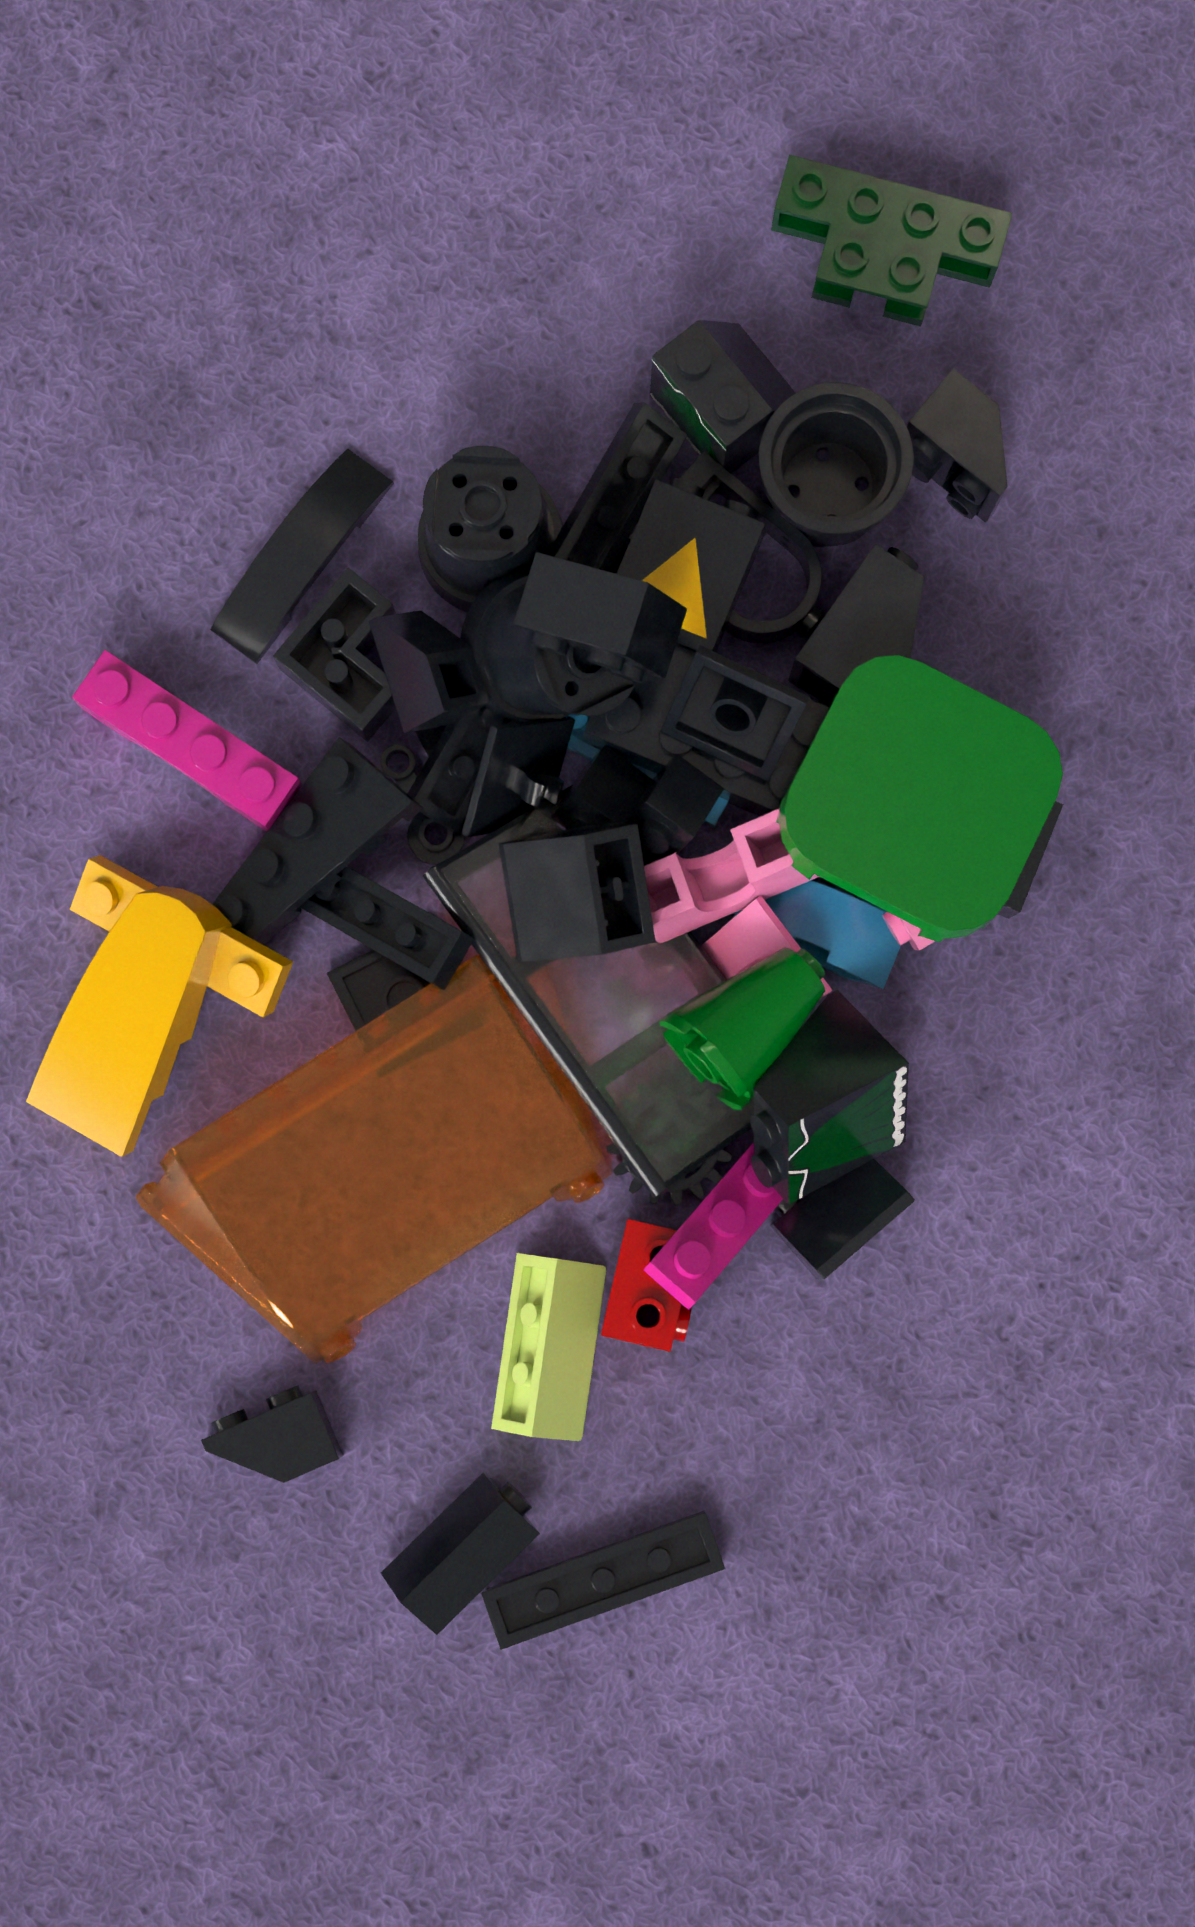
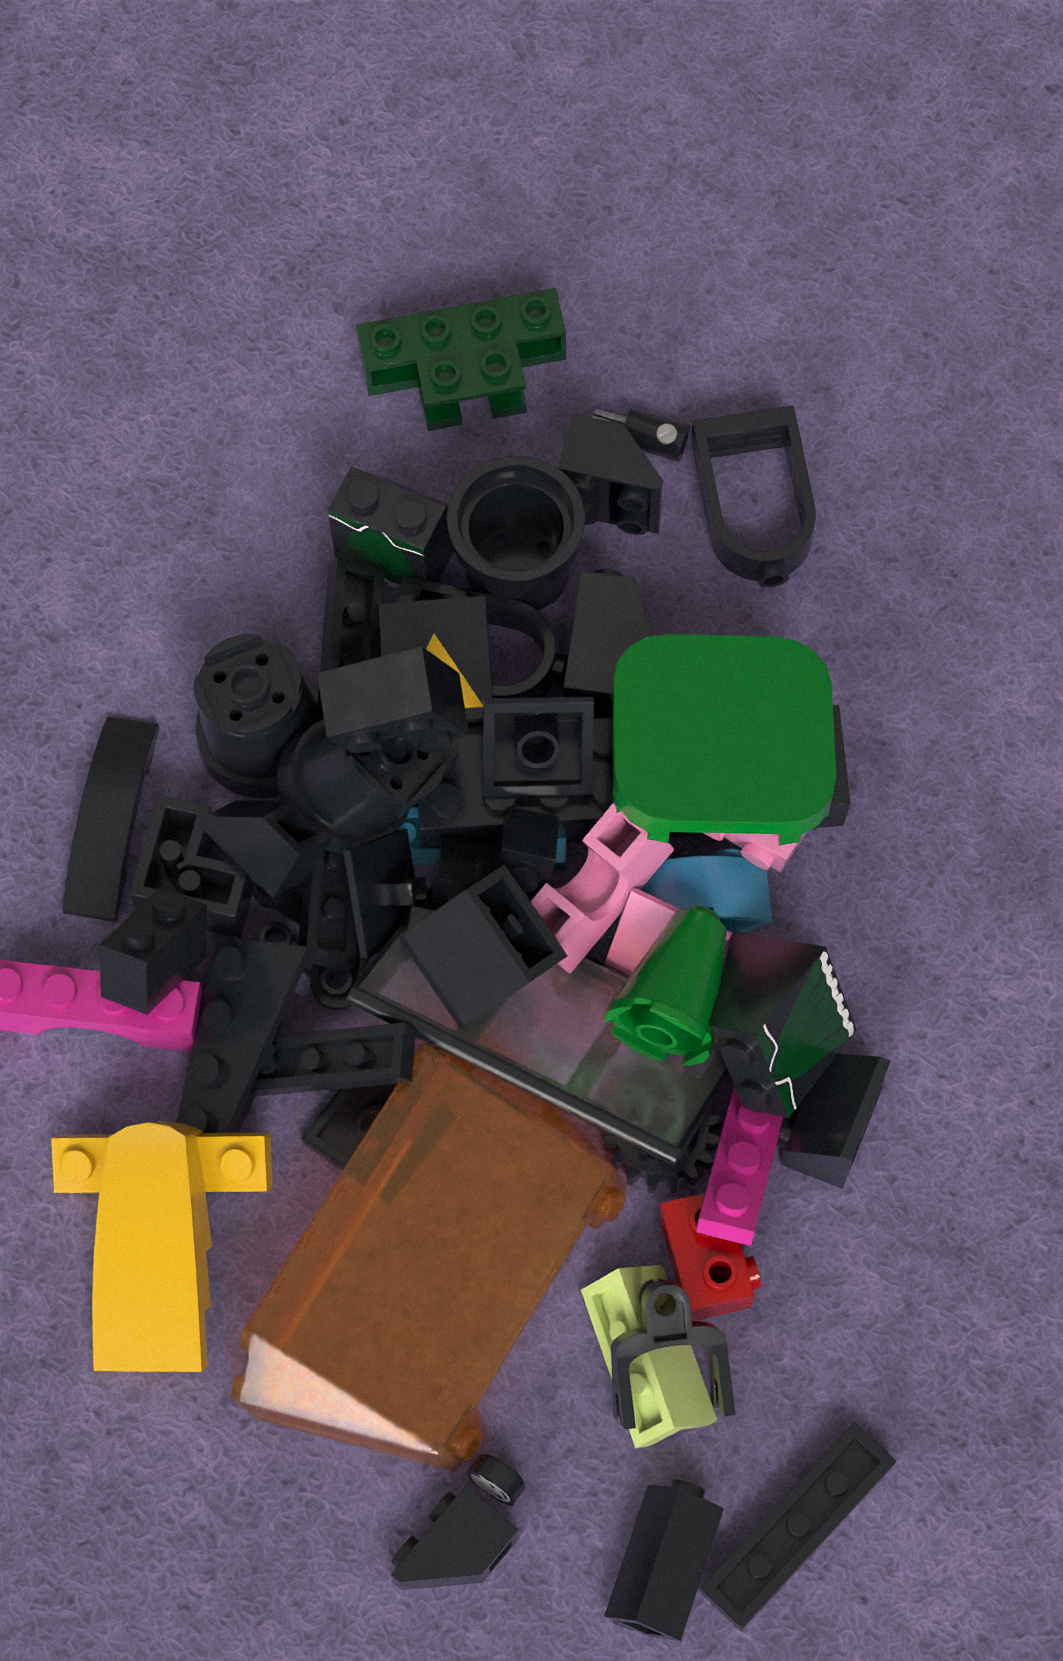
camera: 25 degrees left, 15 degrees down
(264, 729) = (153, 950): none -> black brick
(347, 1394) = (496, 1479): none -> black tile
(568, 1342) = (664, 1329): none -> black piece
(1028, 410) = (652, 433): none -> black piece
(1121, 463) = (746, 434): none -> black window

